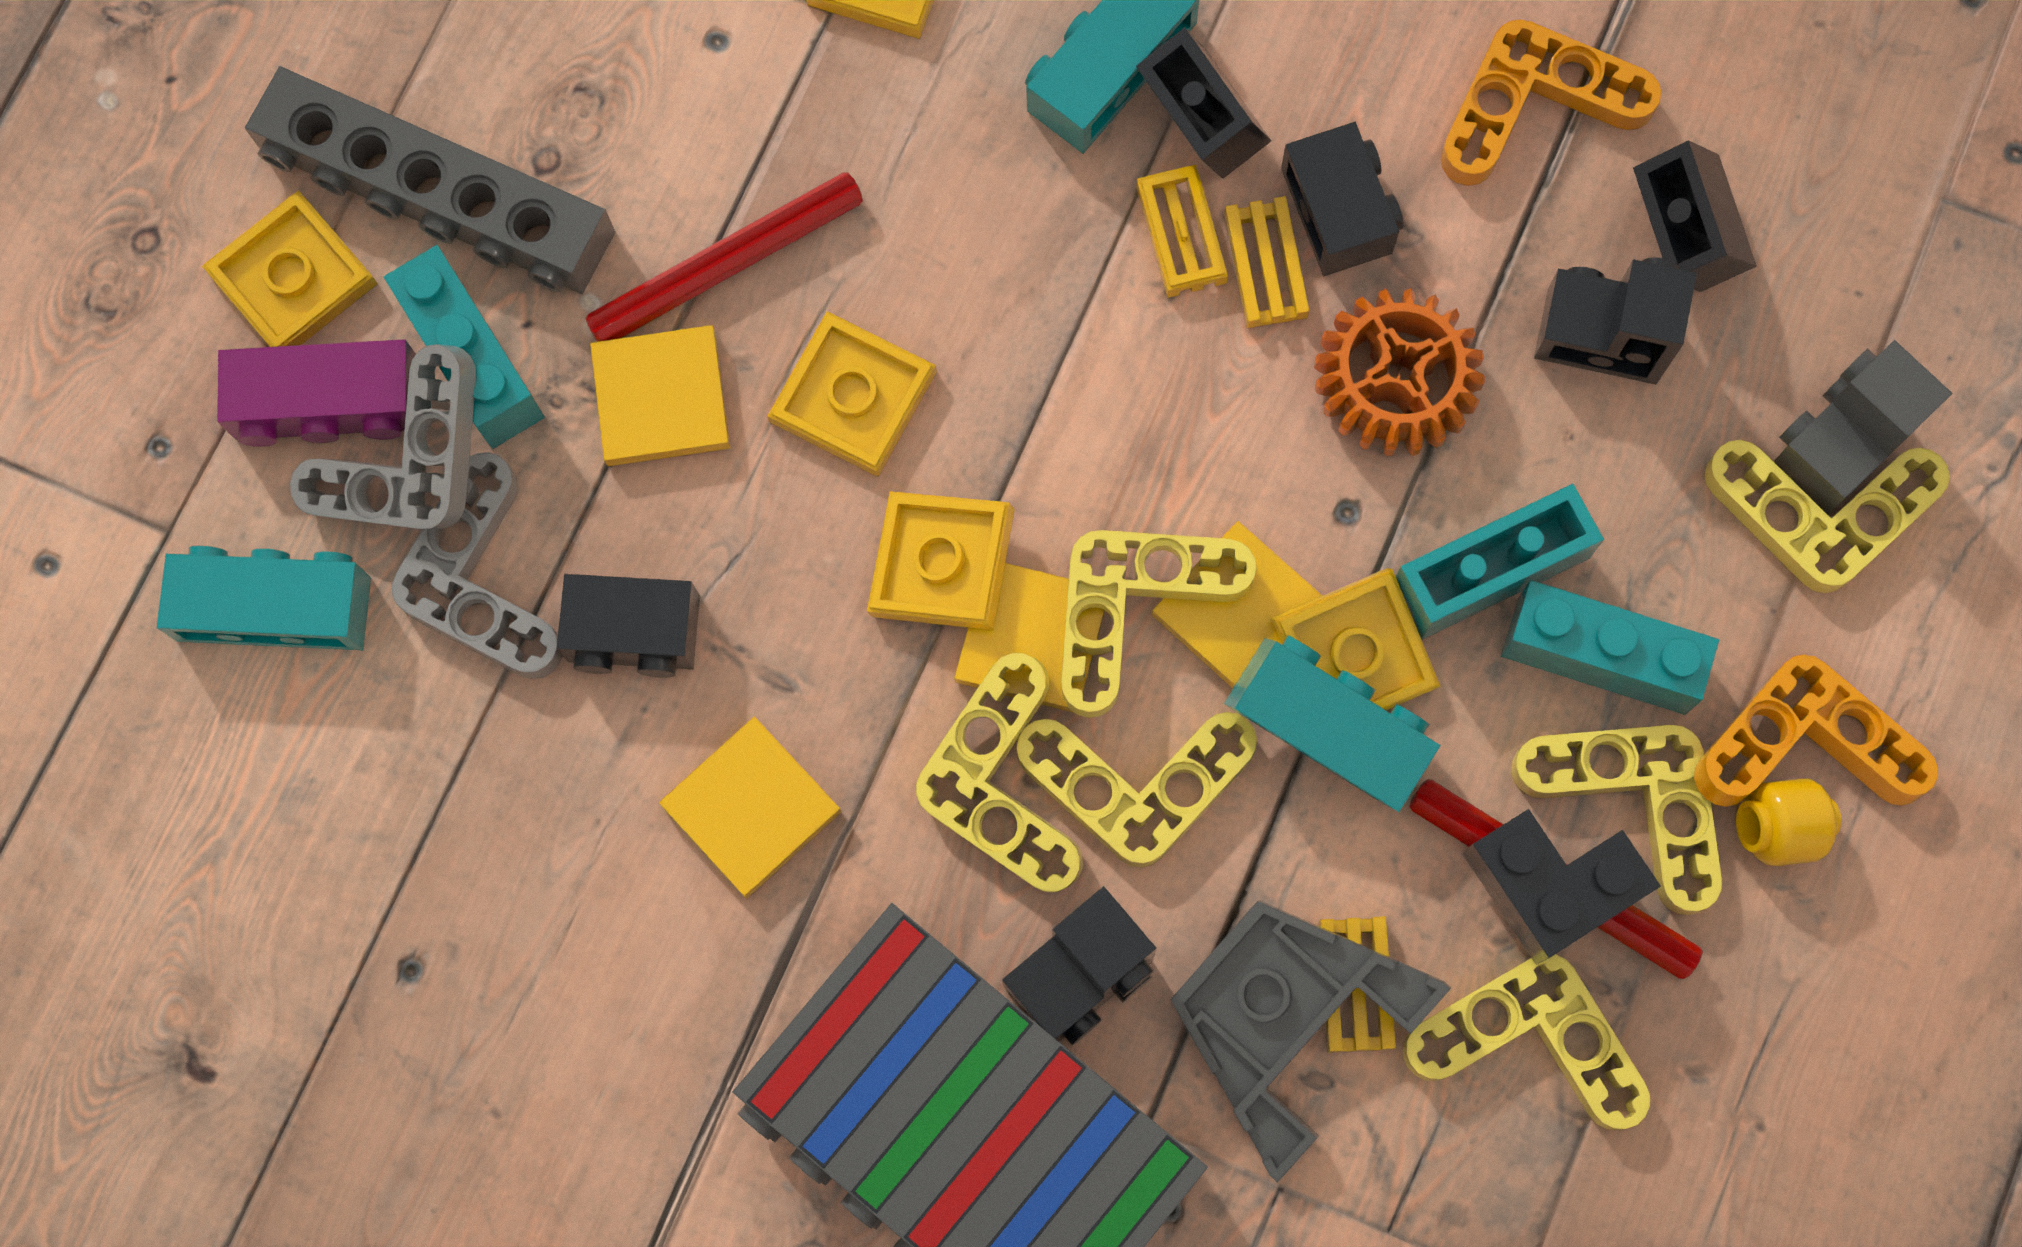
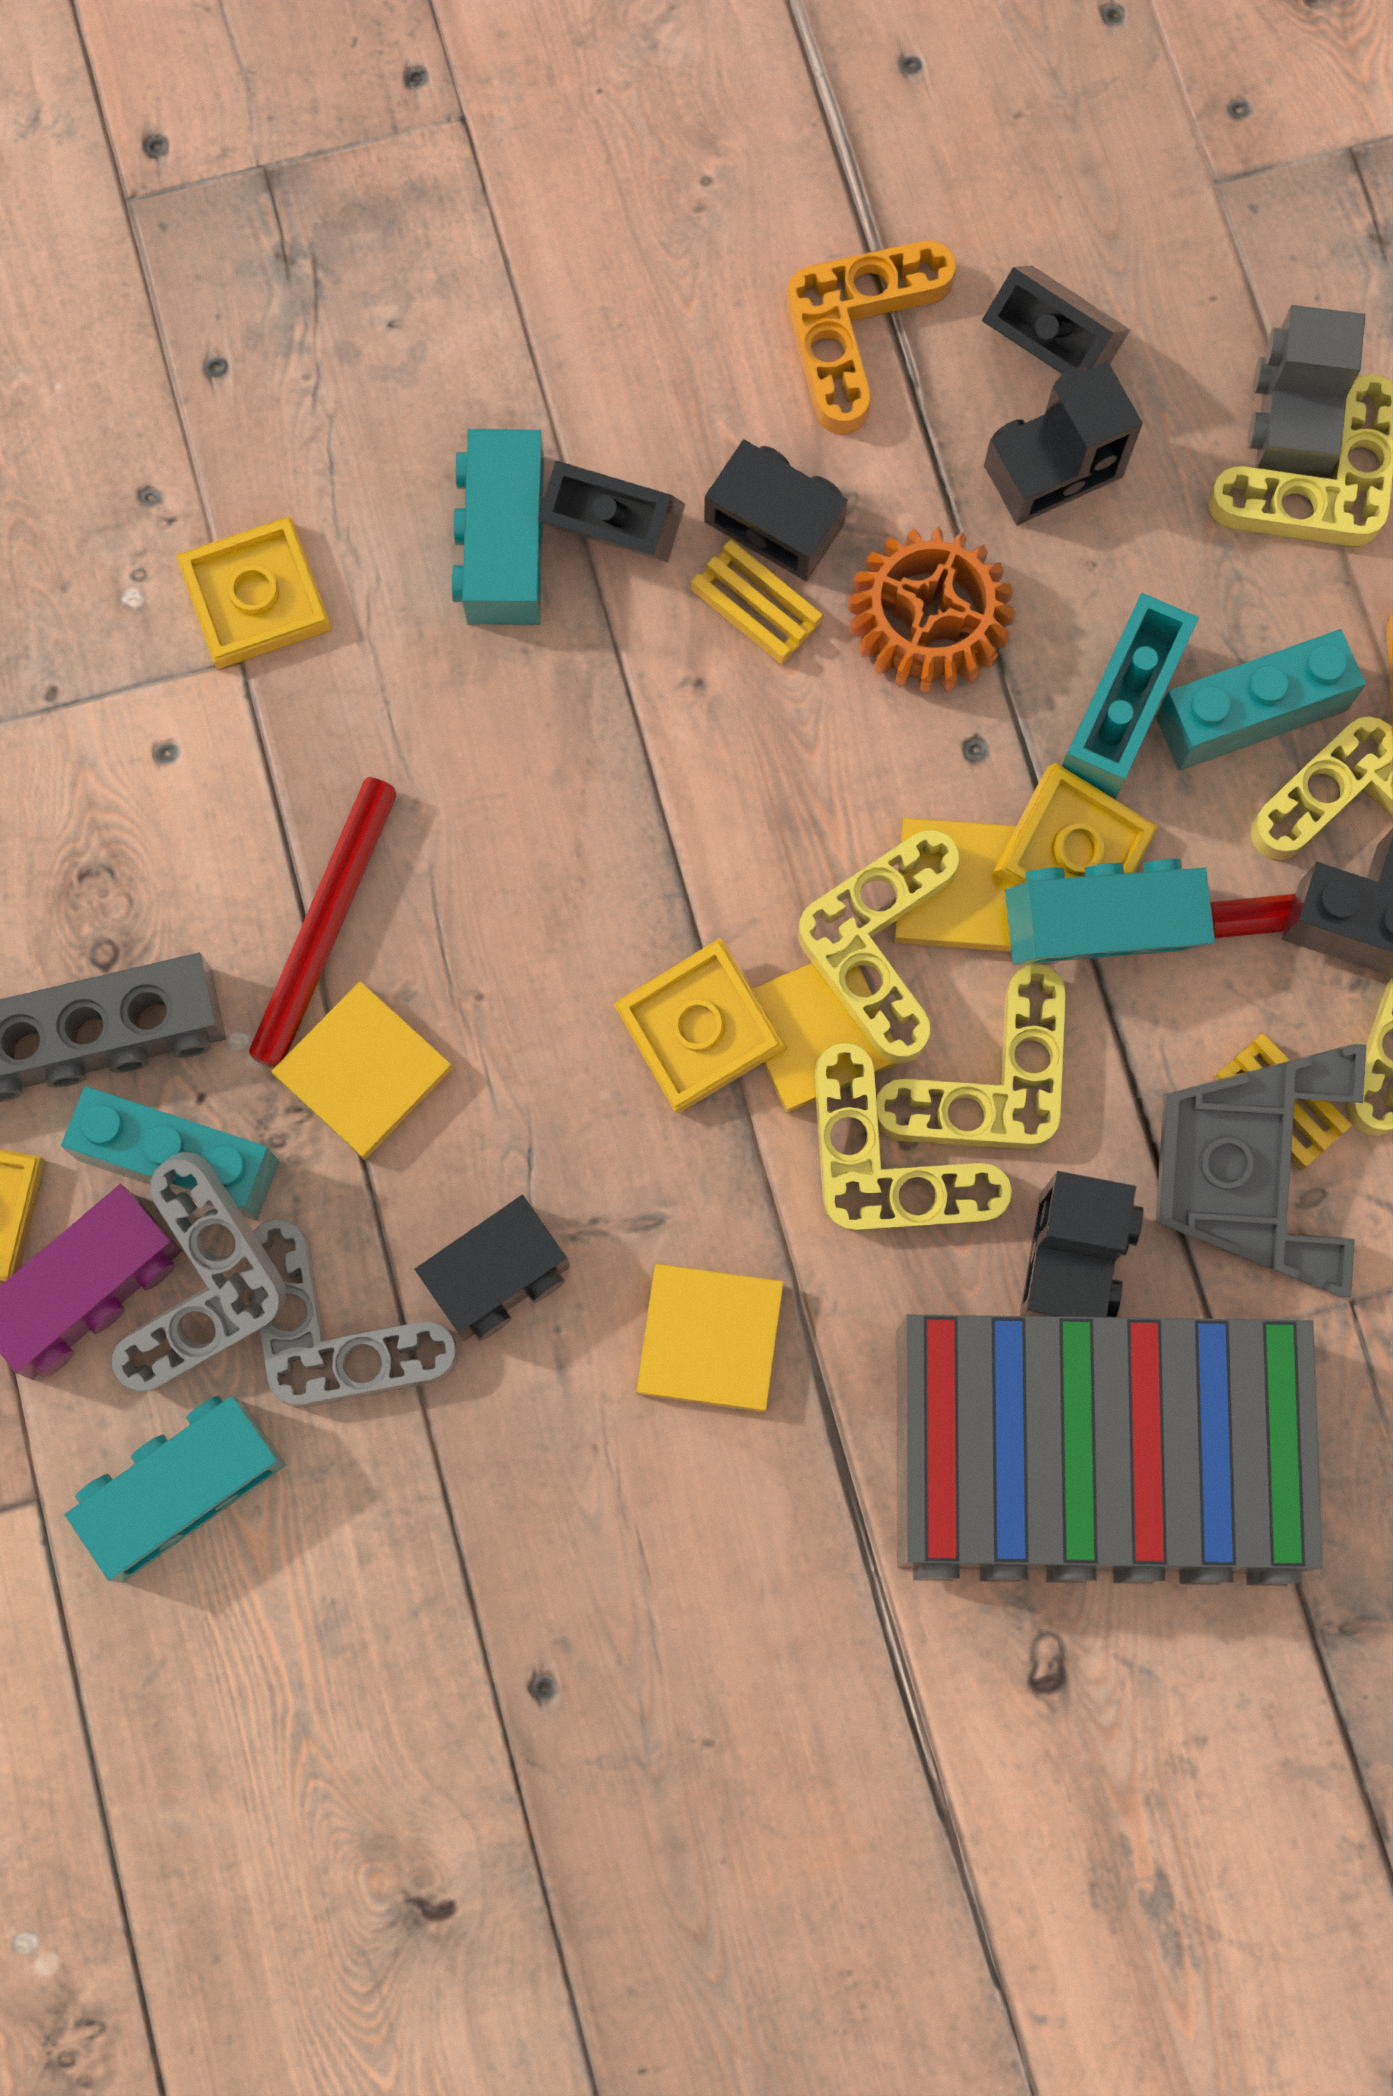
camera: 45 degrees left, 0 degrees up
(852, 393) = (516, 950): yellow tile -> none
(1193, 278) = (657, 646): yellow tile -> none

